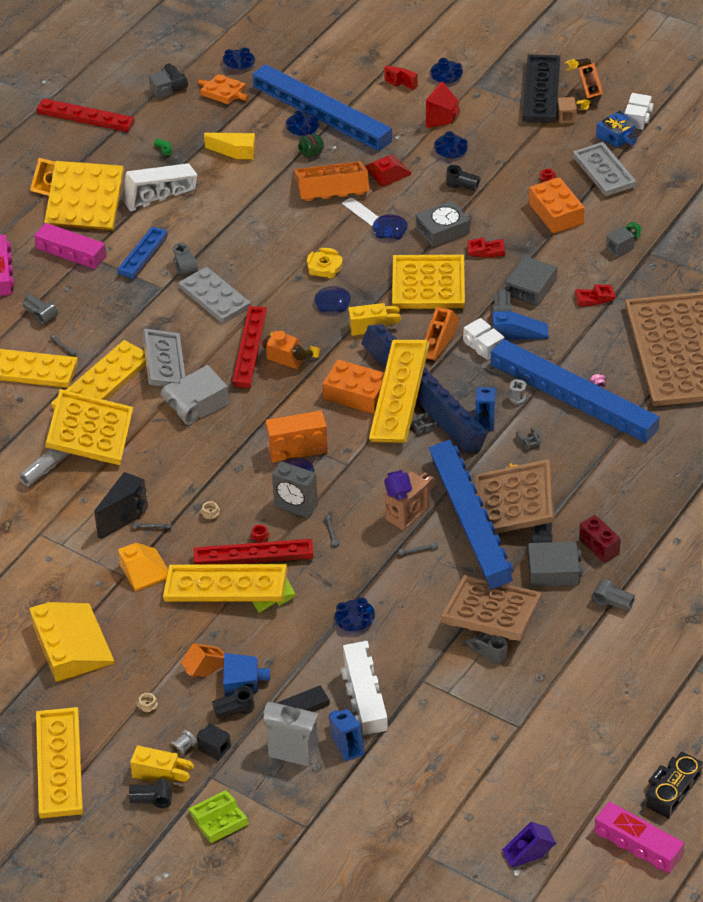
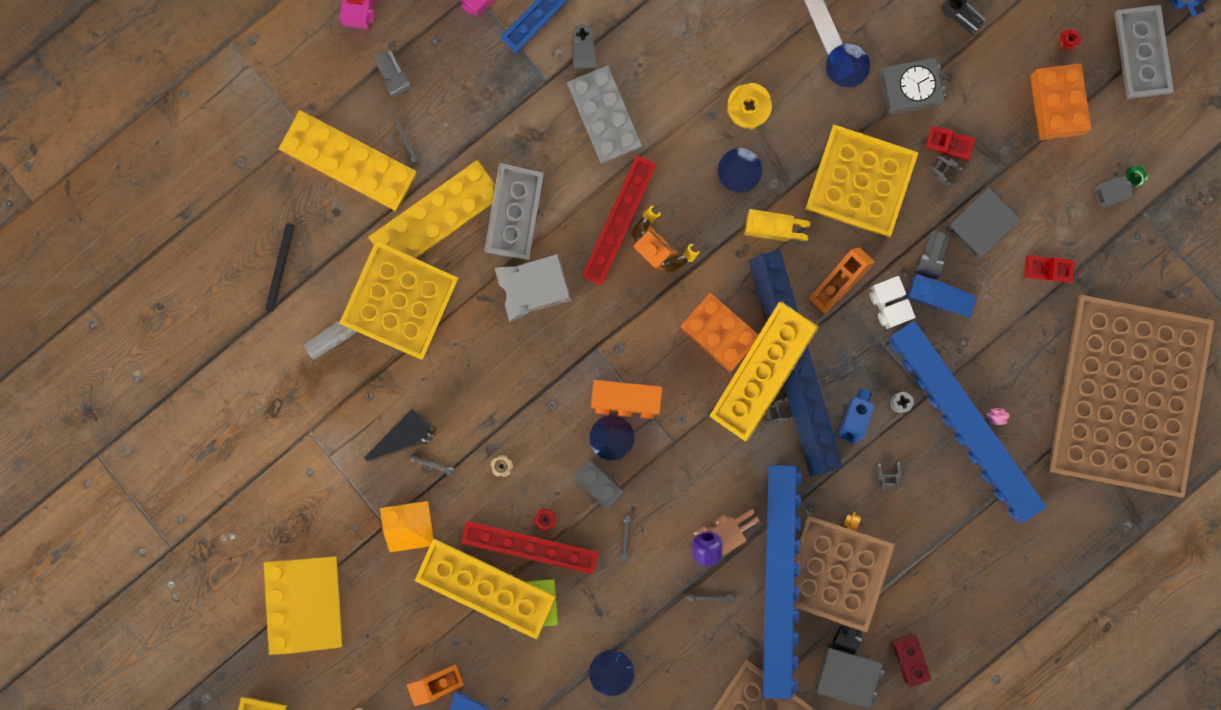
camera: 20 degrees right, 40 degrees up
(486, 261) = (940, 175): none -> dark grey piece

